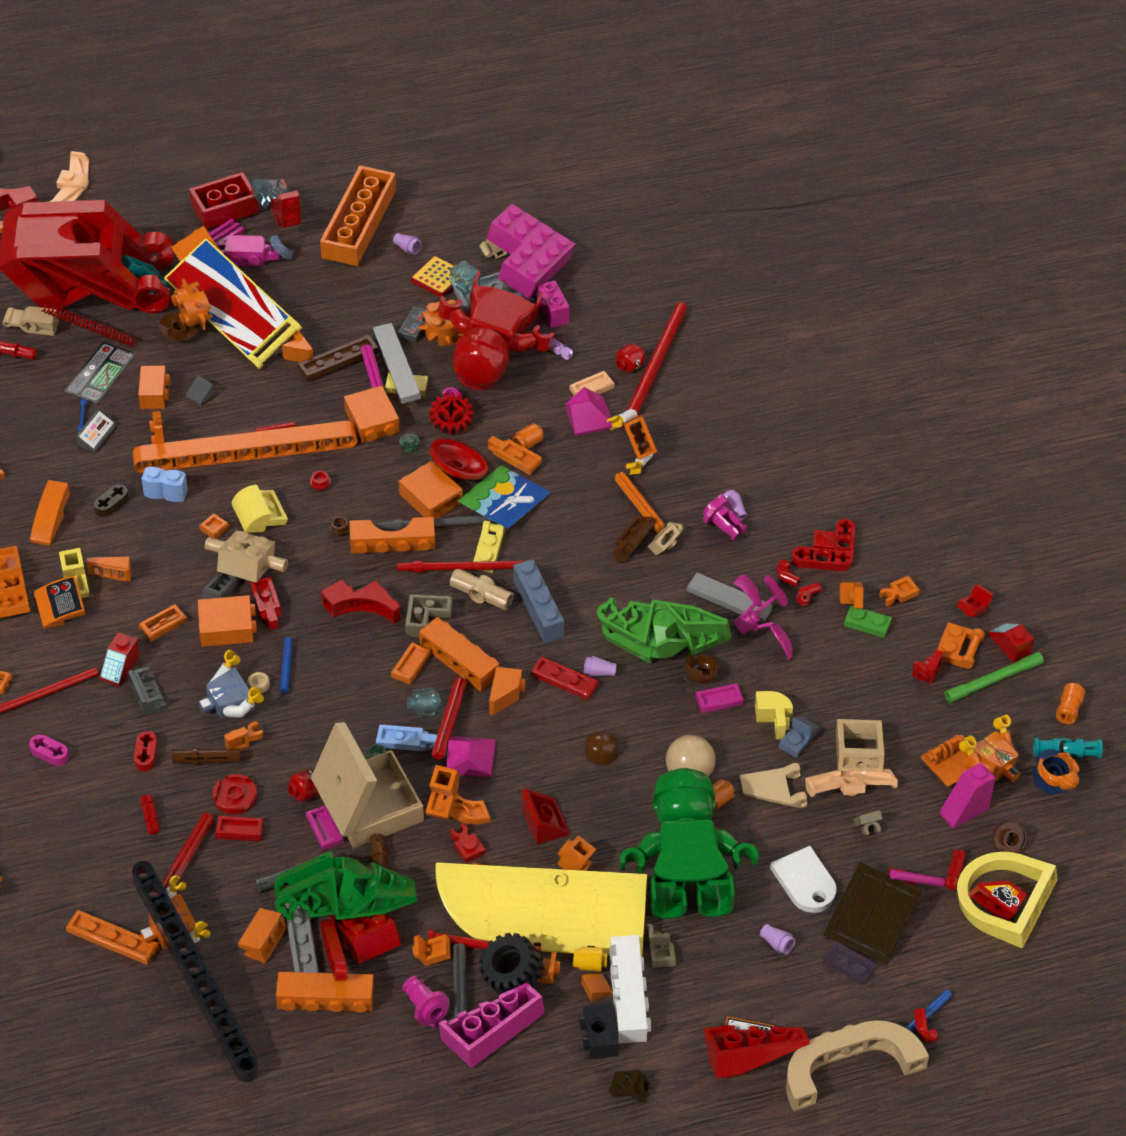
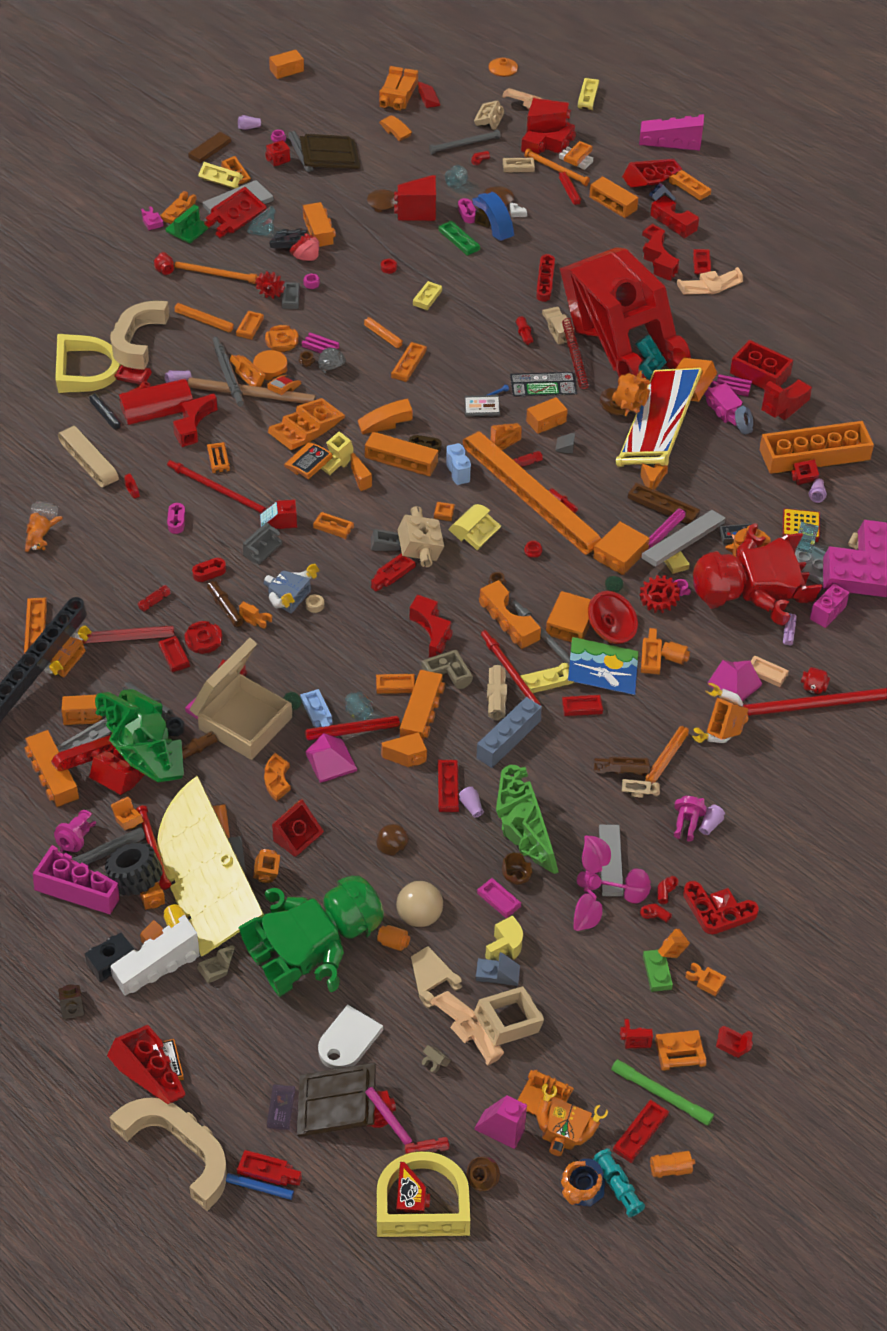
camera: 60 degrees right, 0 degrees up
(37, 175) = (701, 261): none -> red slope
(112, 523) = (401, 454): none -> orange brick
(197, 428) = (529, 459): none -> red axle
(226, 620) = (355, 556): orange brick -> none
(266, 189) = (783, 379): clear light blue slope -> none
(286, 665) = (342, 611): blue bar -> none
(381, 239) = (808, 468): none -> red brick
(444, 792) = (273, 753): orange brick -> none
(467, 846) = (243, 797): red plate -> none
(538, 535) = (582, 705): none -> red tile
(780, 940) = (271, 1045): lavender cone -> none
(915, 996) = (268, 1169): none -> red hinge
(922, 1027) = (239, 1187): red arm -> none
(1013, 640) = (712, 1089): red slope -> none
(1022, 711) = (640, 1131): none -> red tile

